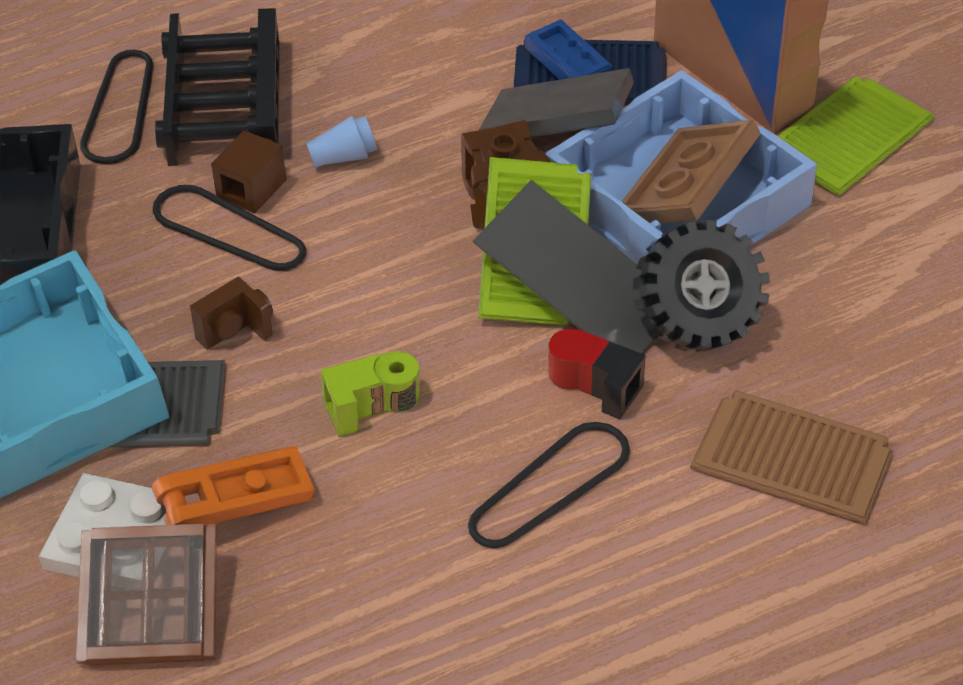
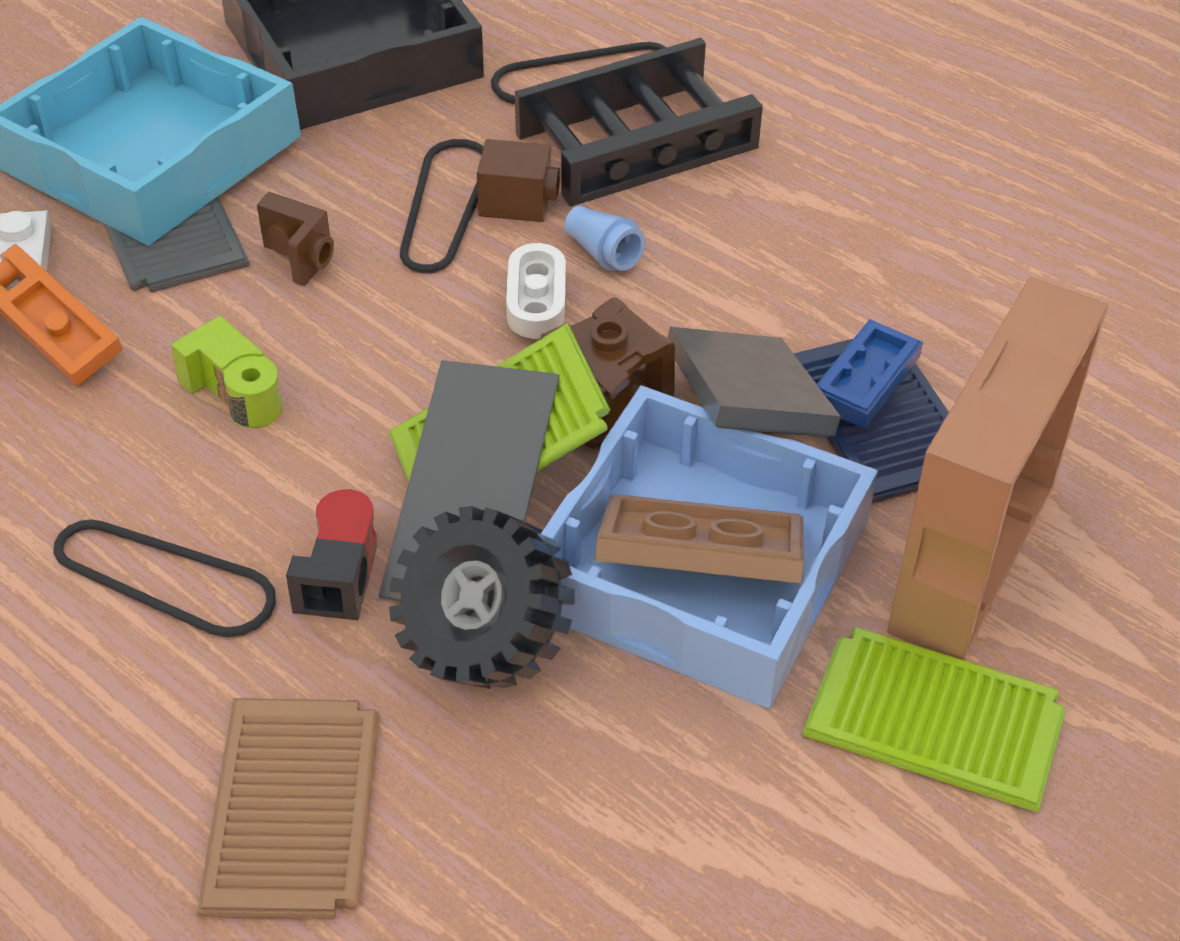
camera: 65 degrees right, 0 degrees up
(378, 196) = (535, 290): none -> white plate

